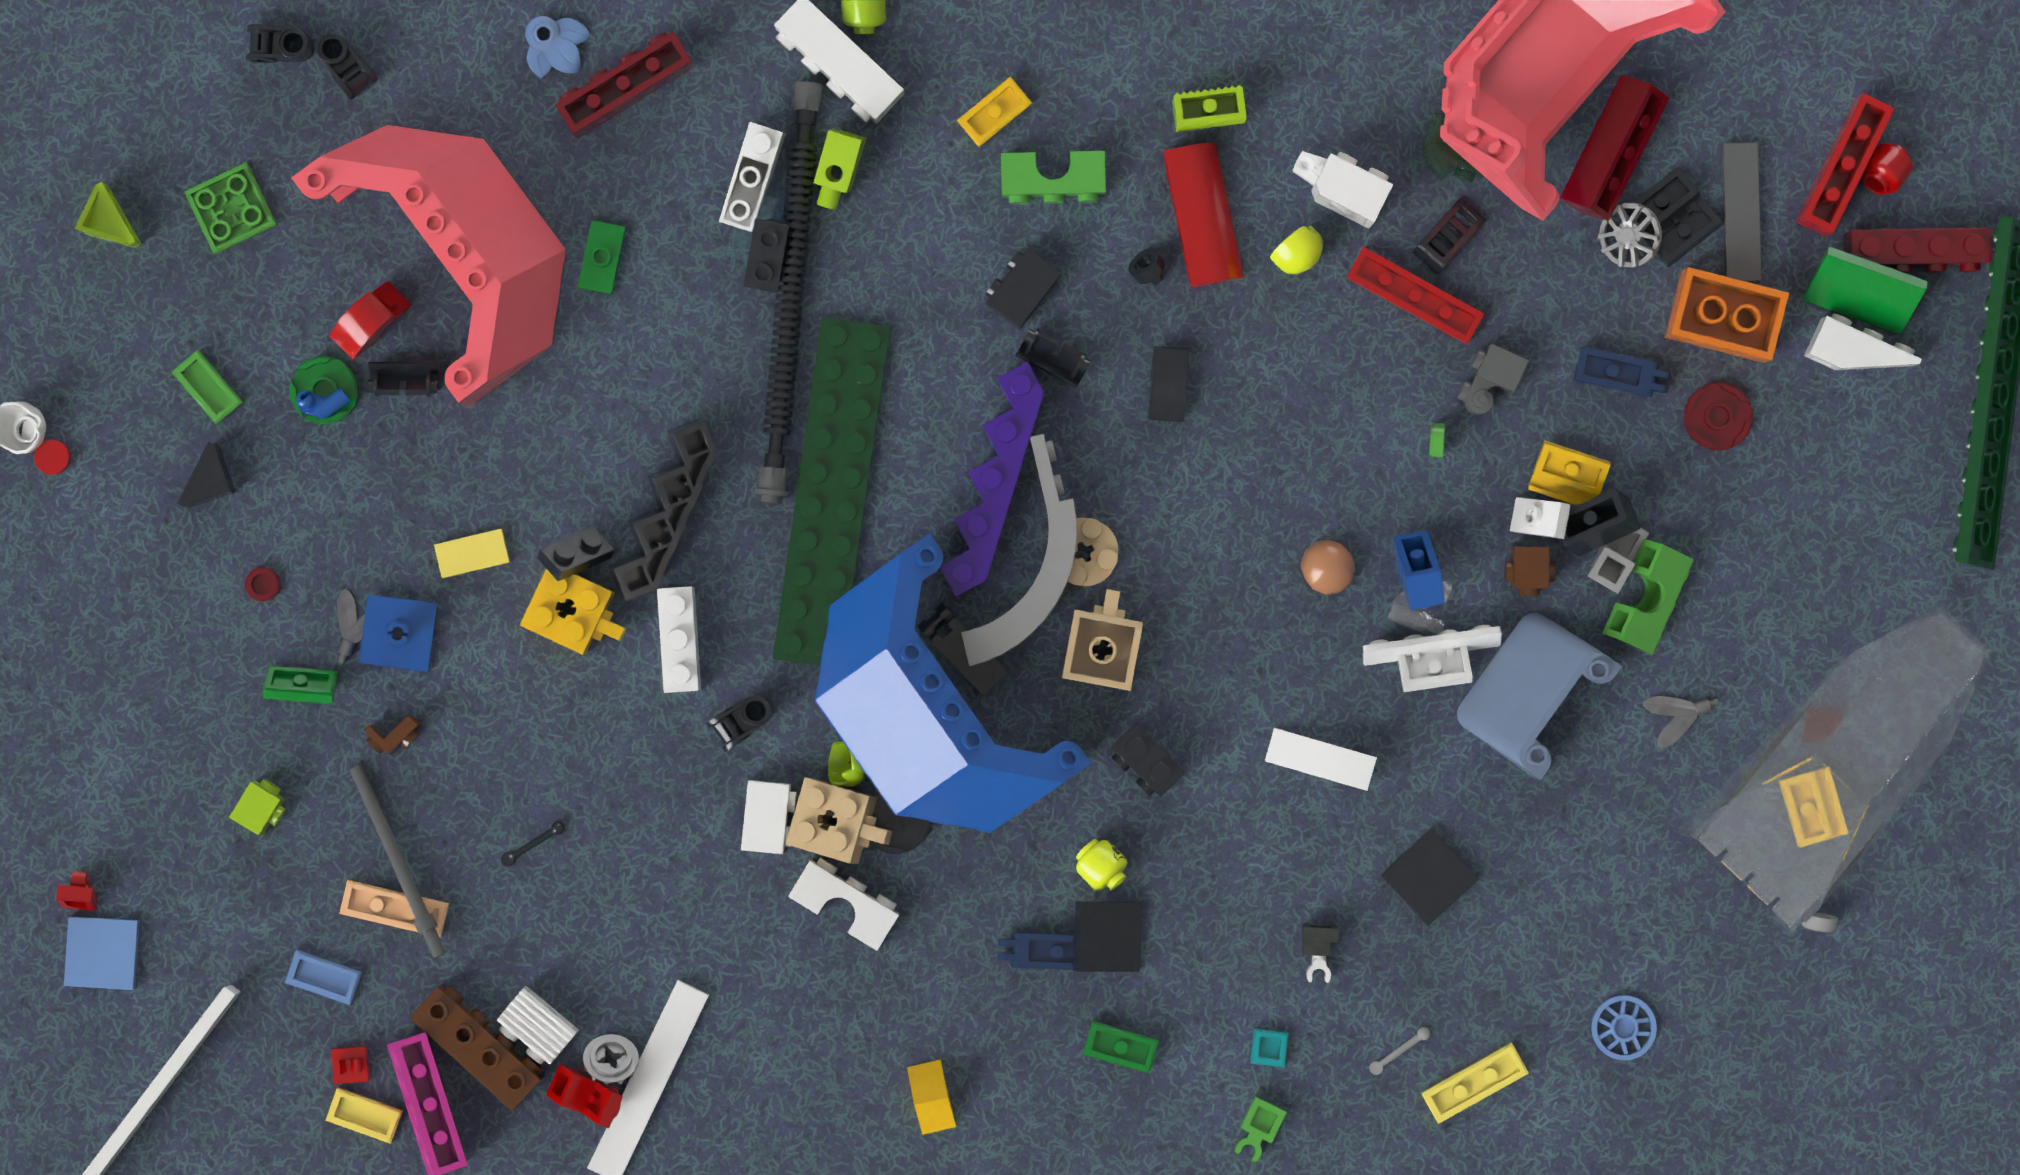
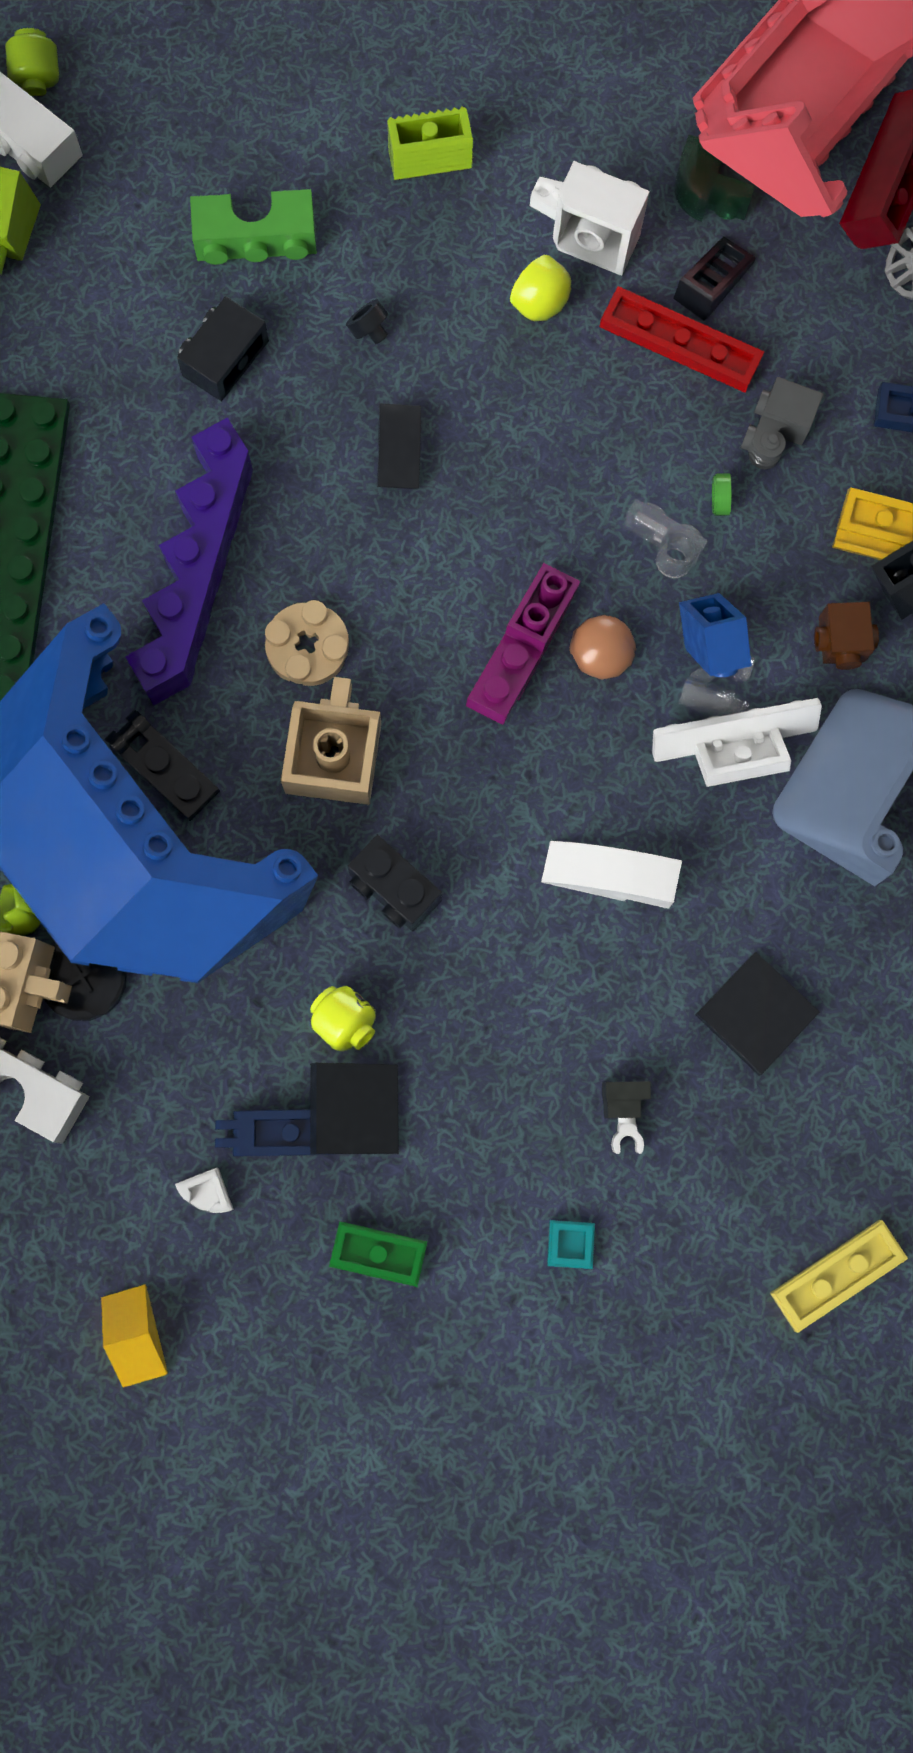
camera: 10 degrees left, 10 degrees down
(989, 992) = (206, 1192): none -> white tile
(994, 112) = (185, 166): yellow plate -> none
(1034, 608) = (251, 692): light grey arch -> none
(1039, 351) = (277, 429): black hinge -> none
(1203, 214) = (428, 262): red brick -> none
(1260, 1122) = (568, 1345): bright green plate -> none
(1262, 564) = (523, 644): none -> magenta slope
(1376, 463) = (655, 527): none -> clear plate
(1376, 1067) = (710, 1262): light grey hinge -> none
(1540, 517) = (855, 569): white plate -> none

